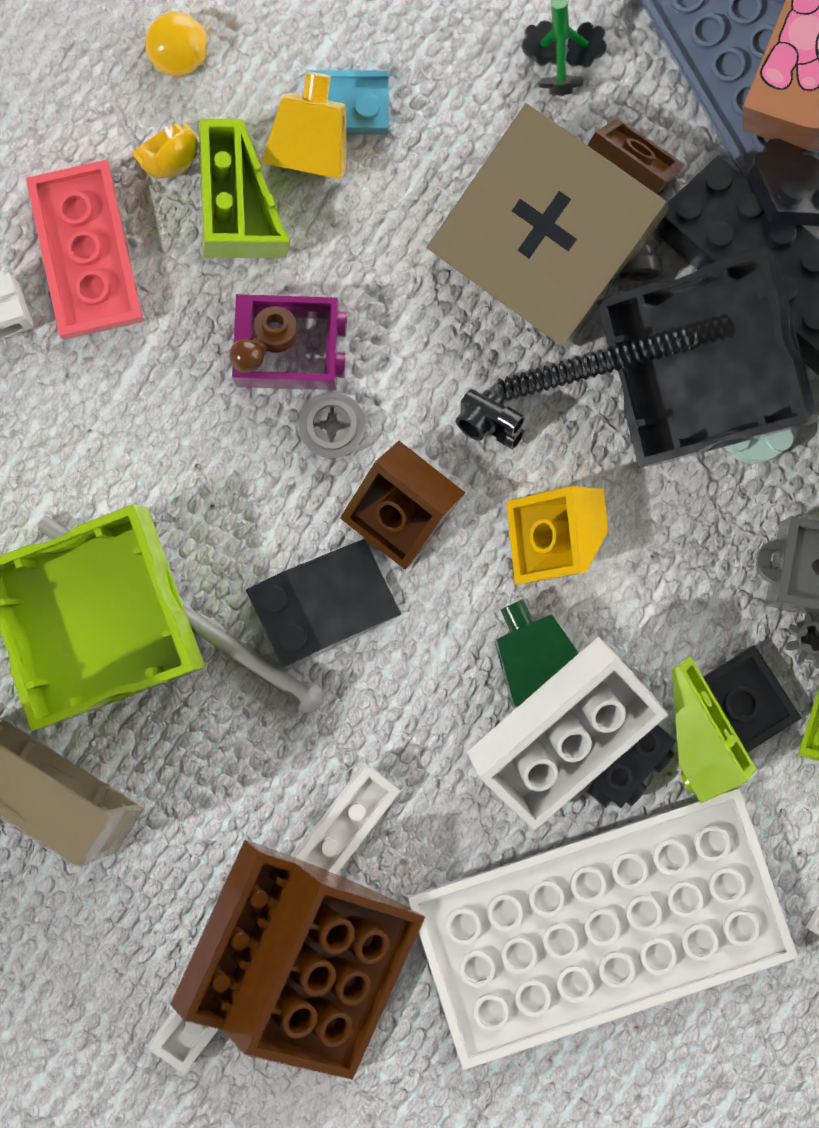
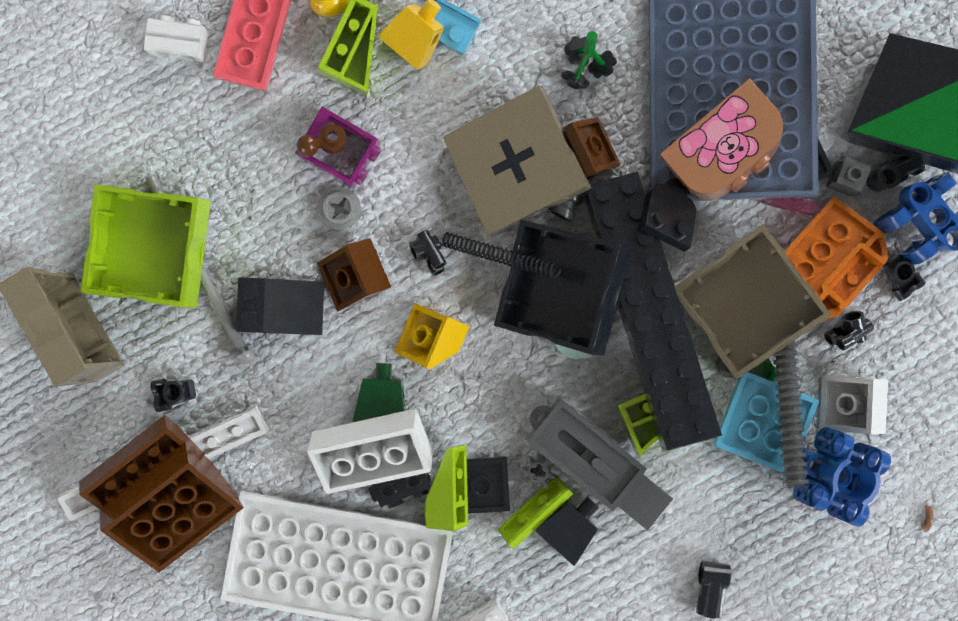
camera: 30 degrees right, 5 degrees up
(228, 813) = (171, 393): none -> black plate

